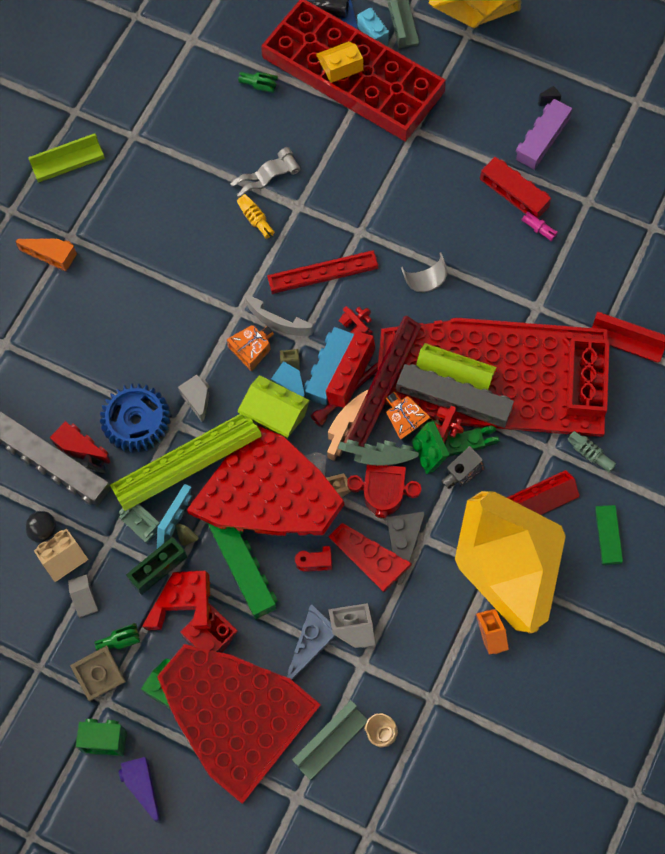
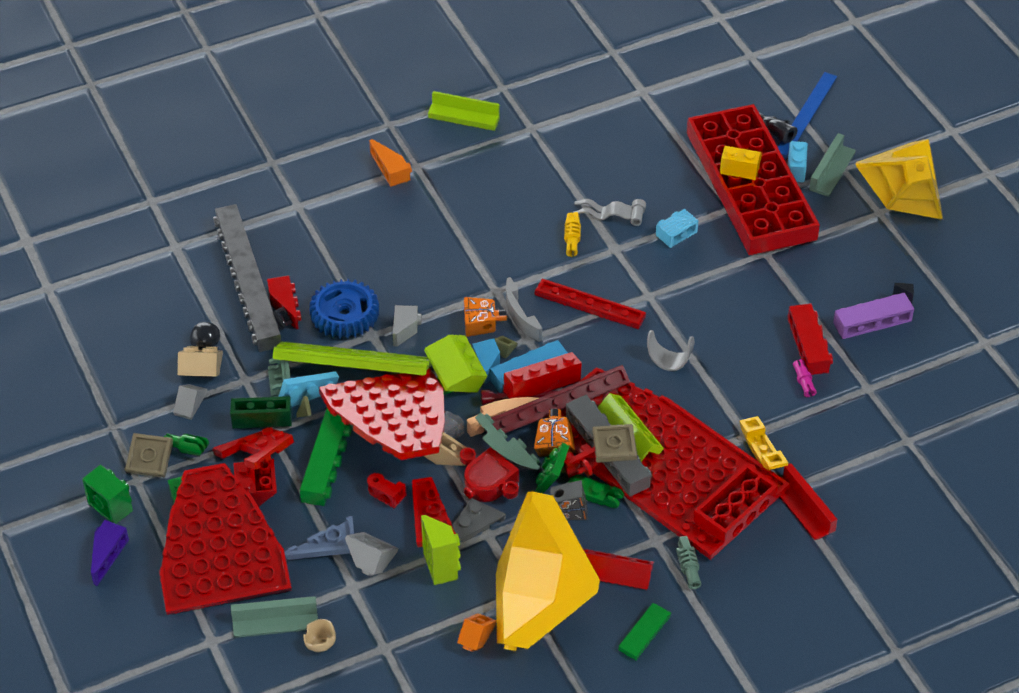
camera: 35 degrees right, 20 degrees down
(259, 81) = (667, 145): green arm -> none
(332, 154) = (677, 228): none -> medium azure brick
(350, 317) = (584, 349): red hips -> none
(413, 587) = (440, 550): none -> lime slope
(465, 393) = (614, 443): none -> dark tan tile
(560, 311) = (761, 445): none -> yellow slope

